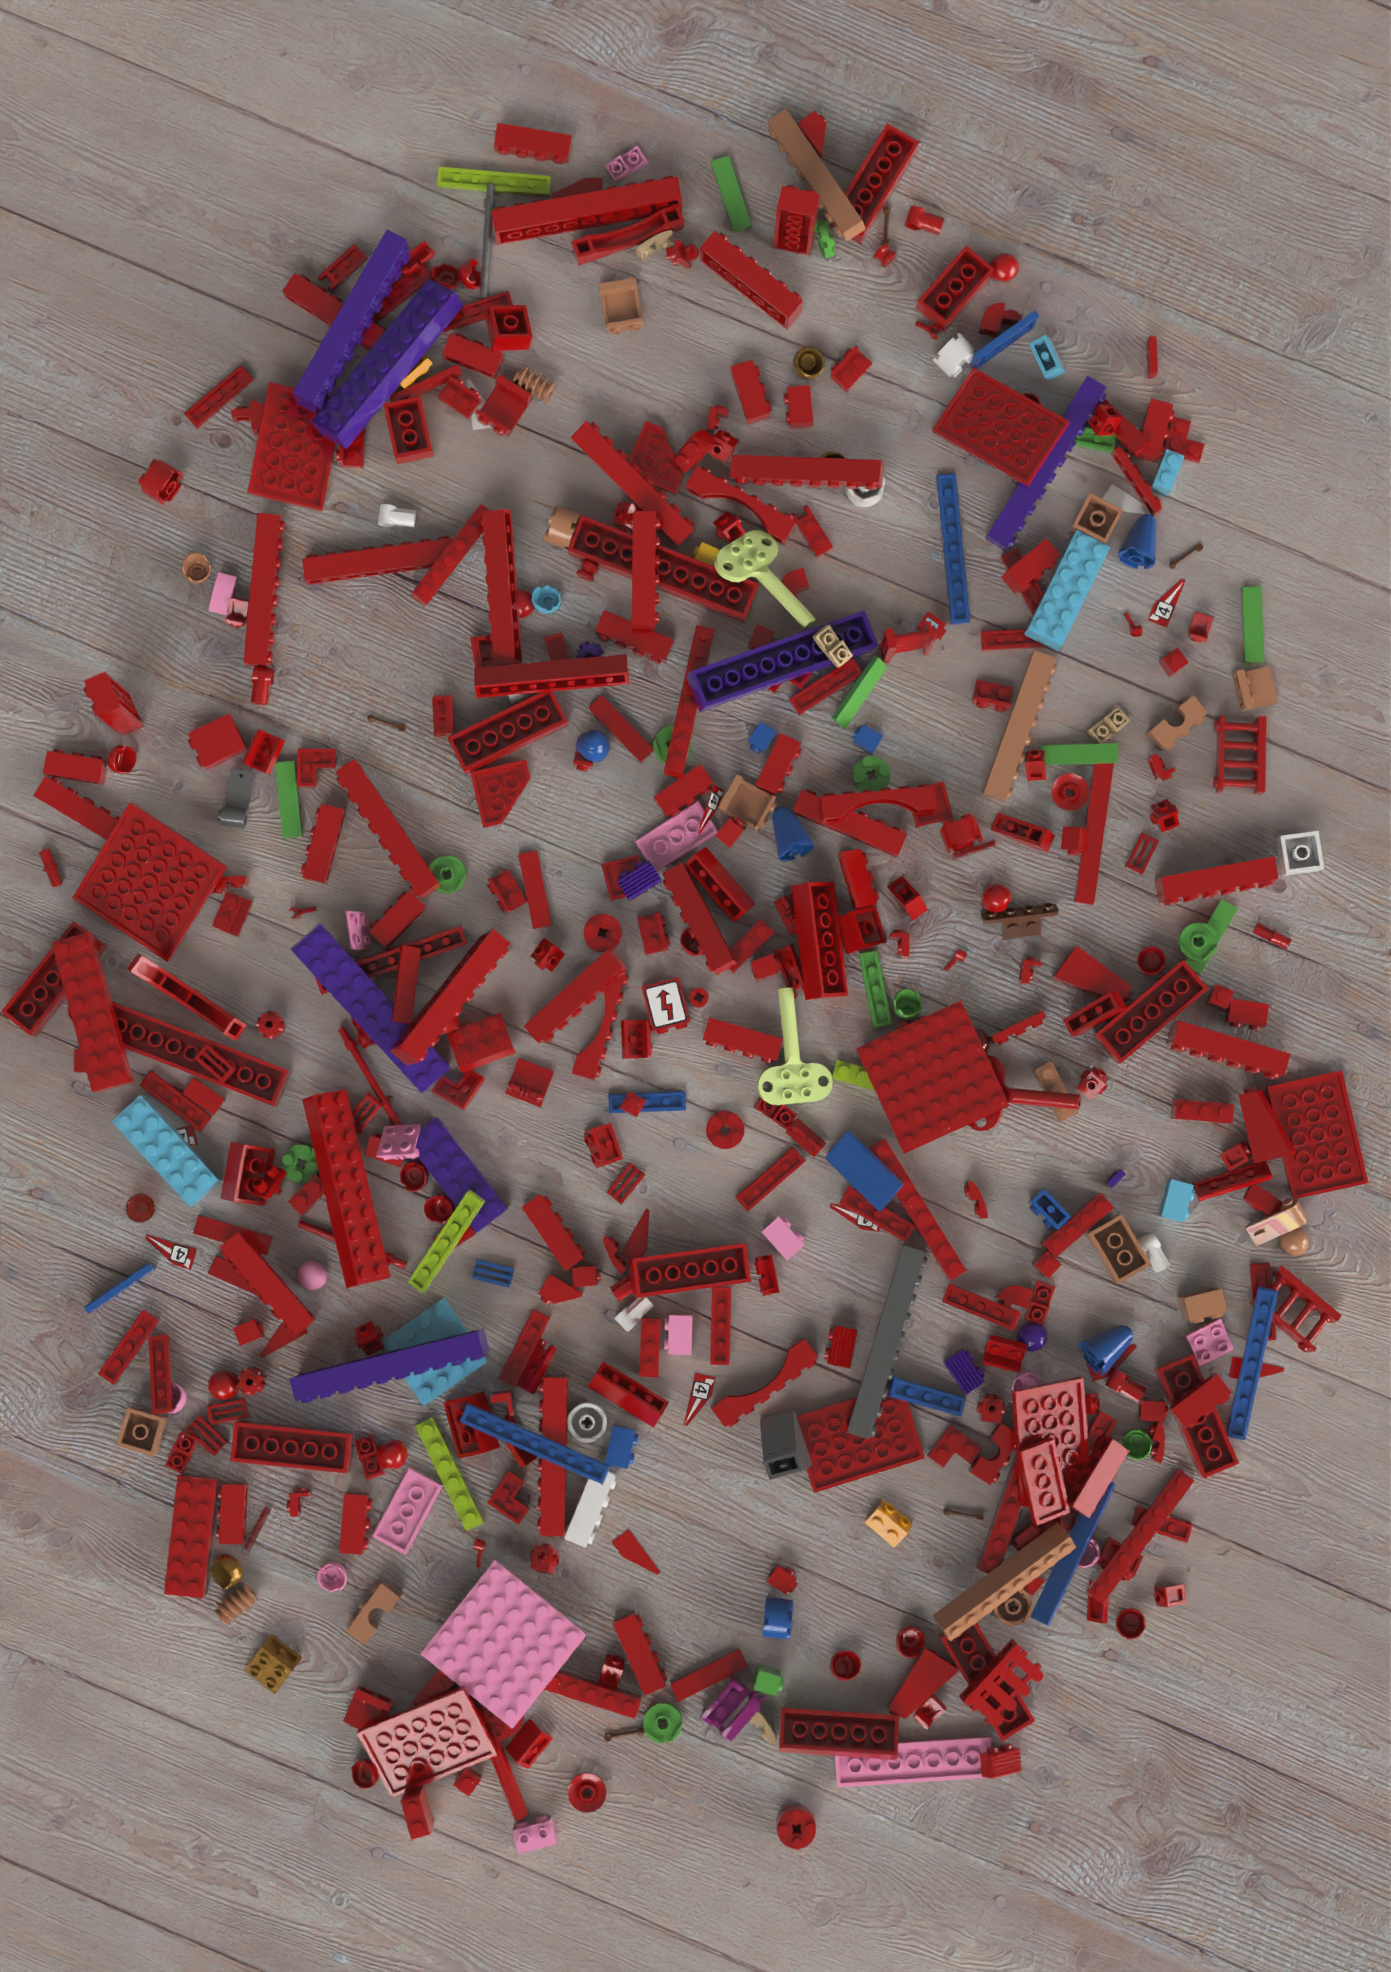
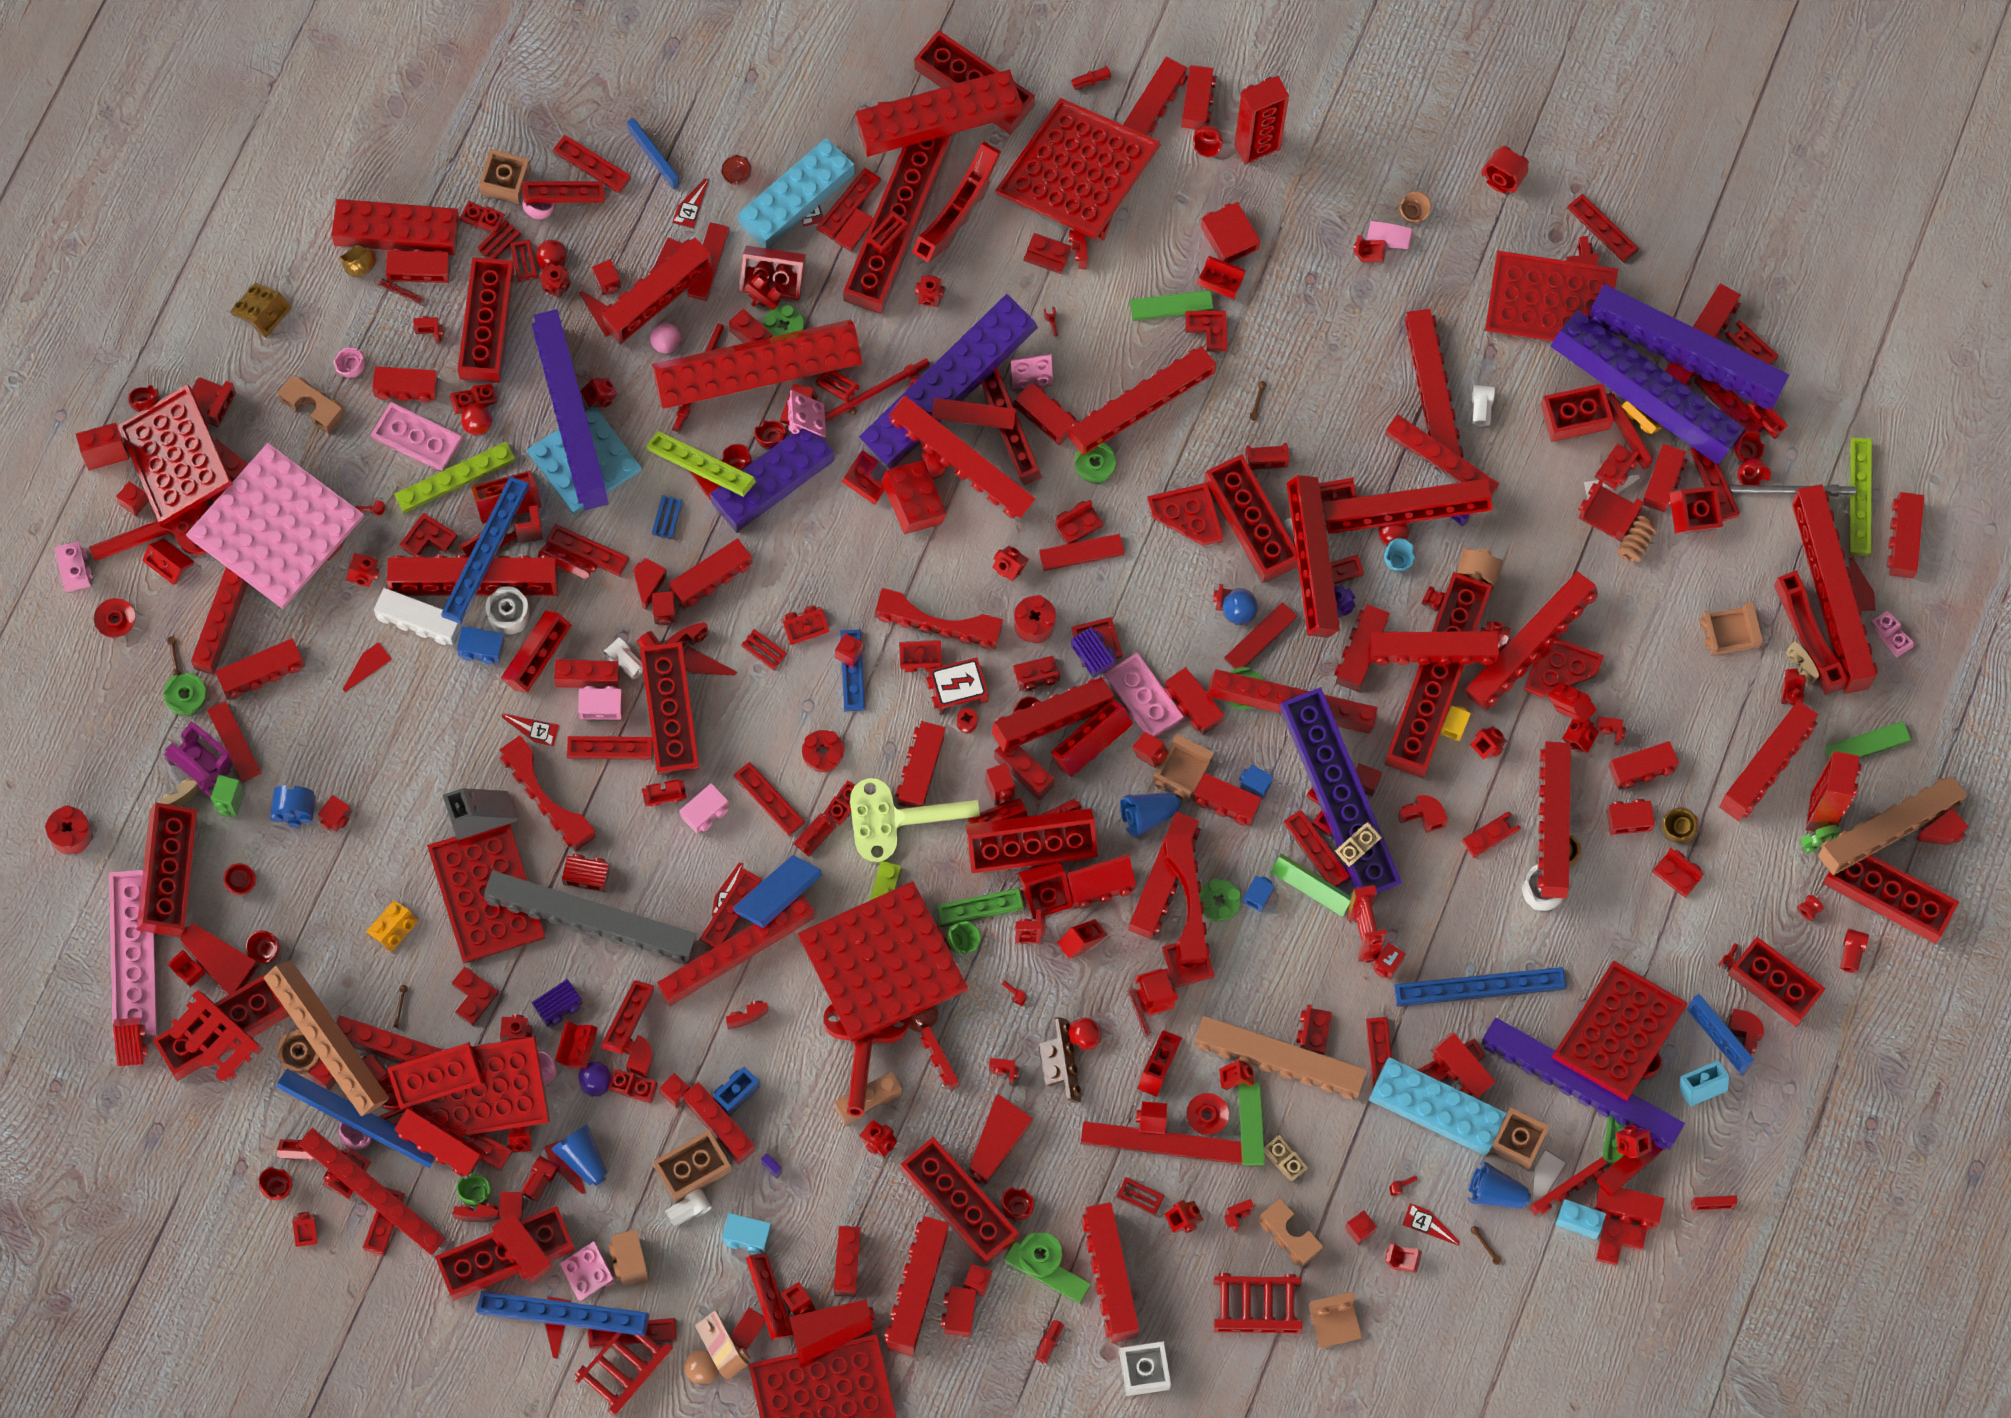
camera: 90 degrees right, 15 degrees down
(236, 1604) = (324, 270): nougat piece -> none
(237, 800) = (1156, 254): dark grey door -> none
(262, 680) = (1298, 276): red piece -> none
(263, 590) = (1394, 274): red brick -> none
(323, 844) = (1124, 339): red brick -> none
(354, 455) = (1552, 362): red bracket -> none
(529, 1082) = (872, 549): red hinge -> none
(575, 997) = (965, 589): red brick -> none
(611, 1671) = (241, 640): red bracket -> none
(707, 486) = (1496, 792): red arch -> none
(712, 806) = (1173, 727): sticker -> none
(750, 558) = (1454, 762): yellowish green piece -> none
(886, 210) = (1827, 910): reddish brown hinge -> none
(926, 1396) = (529, 963): blue tile -> none
(954, 356) = (1698, 978): white brick -> none
(989, 1469) = (449, 1027): red arch -> none
(1005, 267) = (1807, 1039): red hair -> none
(1095, 1013) = (955, 1136): red brick -> none
(1252, 624) = (1409, 1320): bright green tile -> none

